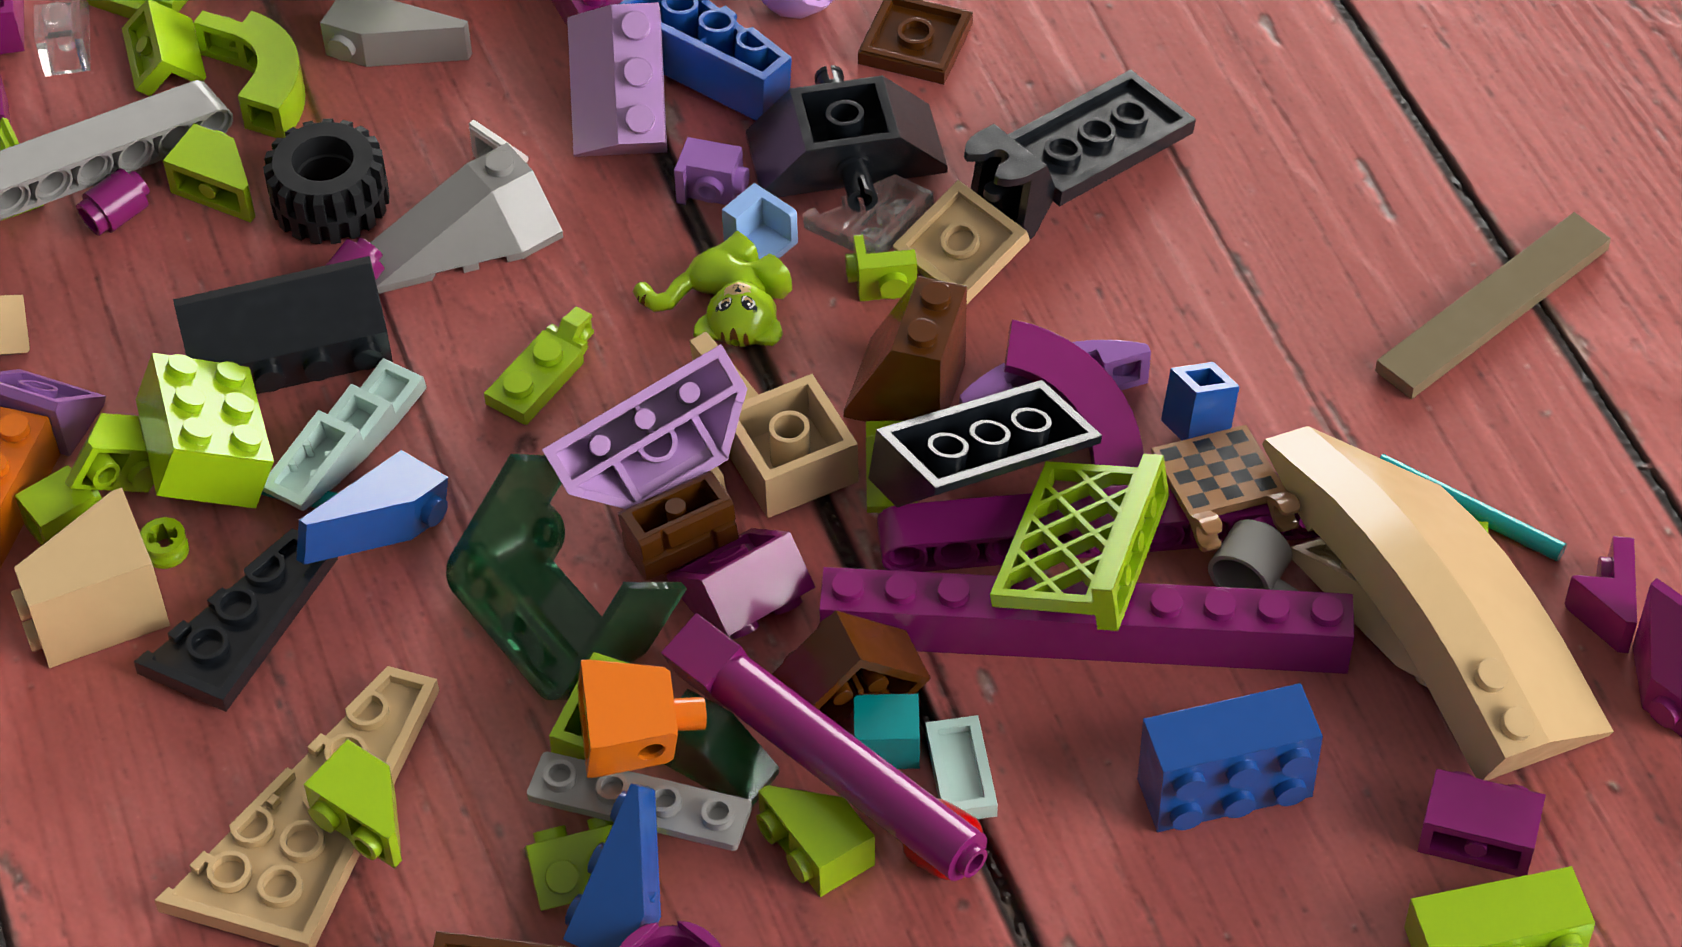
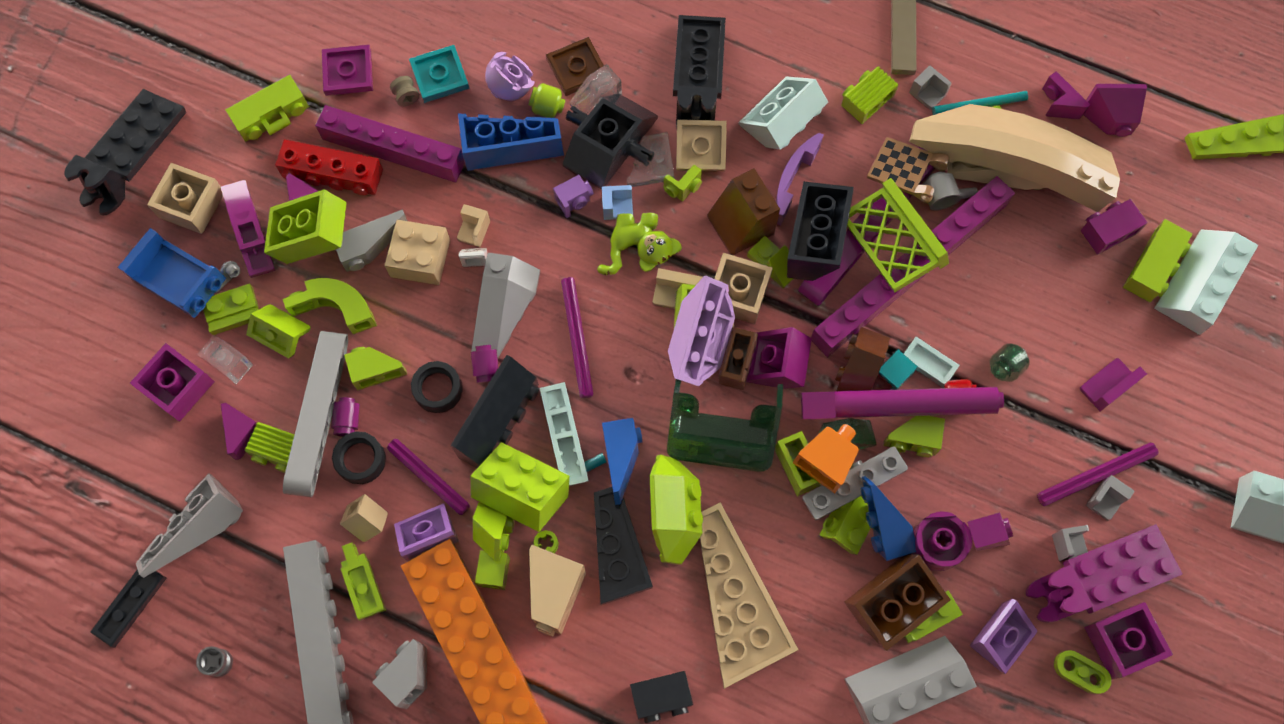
camera: 45 degrees left, 20 degrees up
(63, 233) = (347, 442): none -> black tyre
(68, 837) = (661, 696): none -> black brick
(124, 343) = (428, 476): none -> magenta axle
(253, 230) = (433, 368): none -> black tyre
(326, 181) = (422, 312): black tyre -> none
(357, 624) = (674, 509): none -> lime wedge
(357, 799) = (761, 578): lime slope -> none
(430, 88) = (417, 252): none -> tan brick
(507, 344) = (577, 337): none -> magenta axle
(542, 368) = (602, 337): lime hinge -> none
(546, 119) = (474, 225): none -> tan panel
(617, 80) = (500, 186): lavender slope -> none
(815, 40) = (546, 101): none -> lime head
(909, 65) = (597, 85): none -> clear slope
(1076, 860) = (1009, 362): none -> head
(1082, 384) = (818, 170): magenta tile -> none
(1138, 296) = (784, 111): none -> light aqua slope
(1199, 400) = (860, 141): blue brick -> none
(1229, 758) = (1024, 278): blue brick -> none
(1296, 364) = (869, 94): none -> lime brick
(1406, 422) = (930, 87): none -> light grey panel

